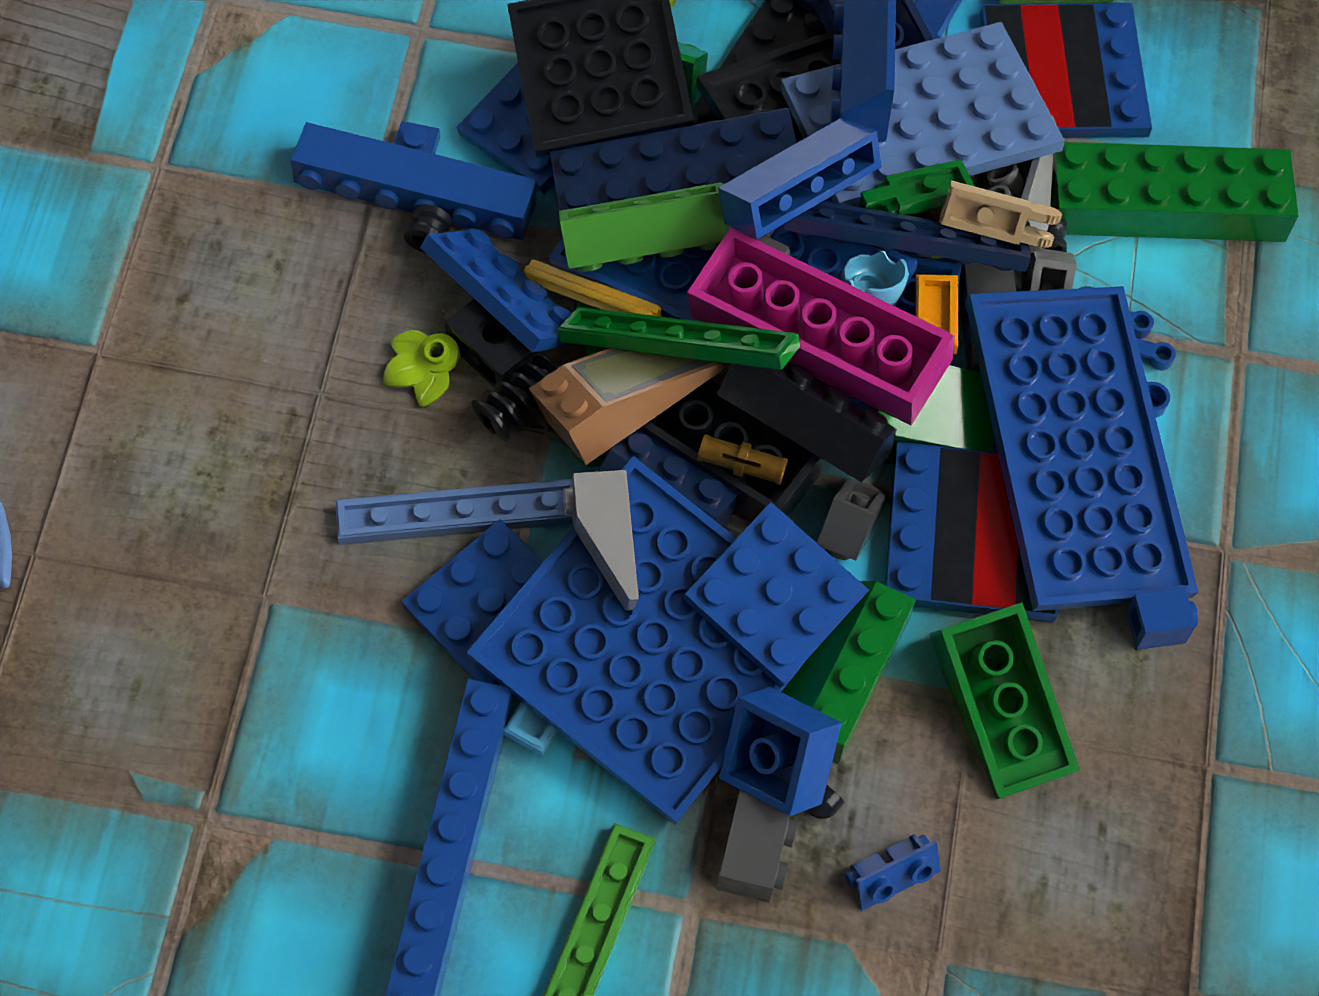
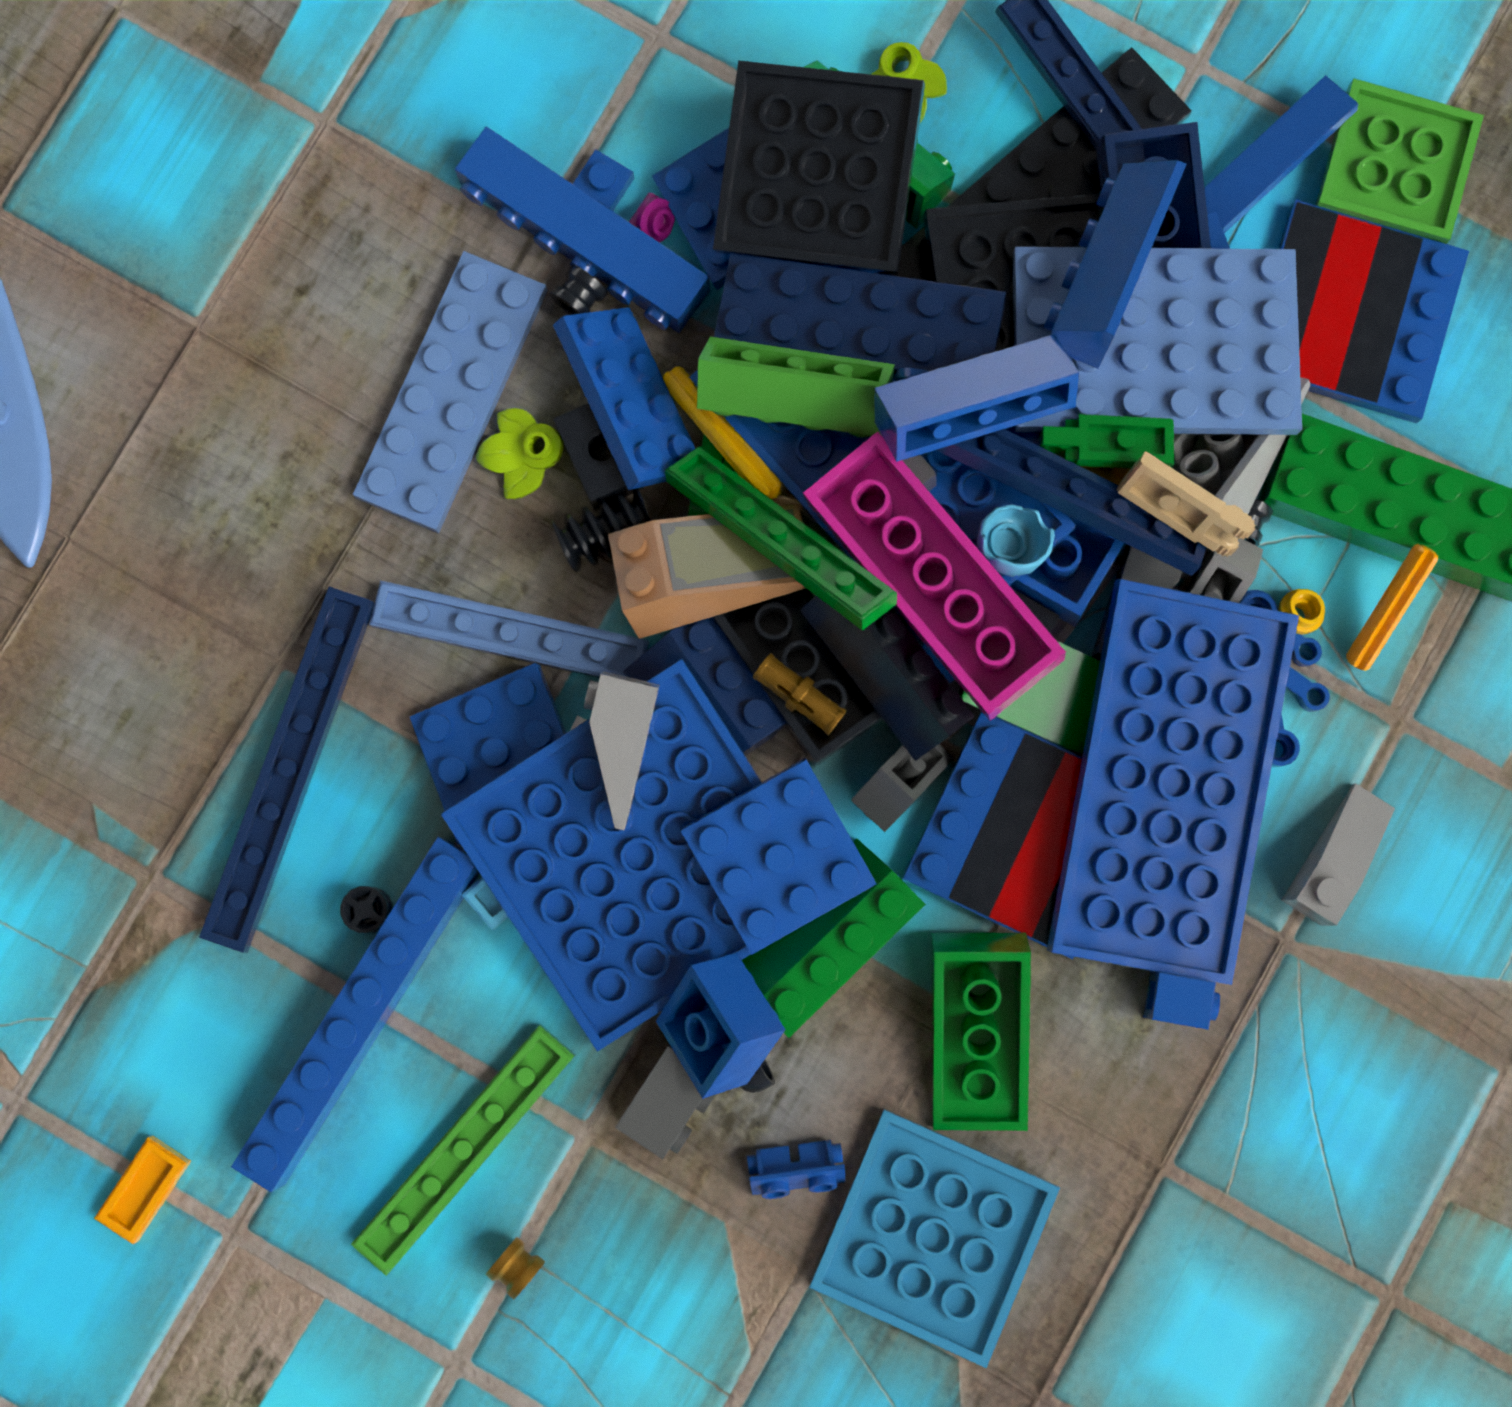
camera: 25 degrees right, 20 degrees up
(305, 684) = (287, 770): none -> dark blue plate
(342, 339) = (450, 392): none -> medium blue plate
(420, 763) = (359, 905): none -> black wheel
(471, 151) = (654, 217): none -> magenta plate
(938, 302) = (1074, 590): light orange tile -> none
(1039, 887) = (935, 1238): none -> dark azure plate
(1132, 288) = (1309, 603): none -> yellow plate
(1192, 263) = (1391, 607): none -> light orange axle
(1239, 471) = (1340, 858): none -> light grey slope

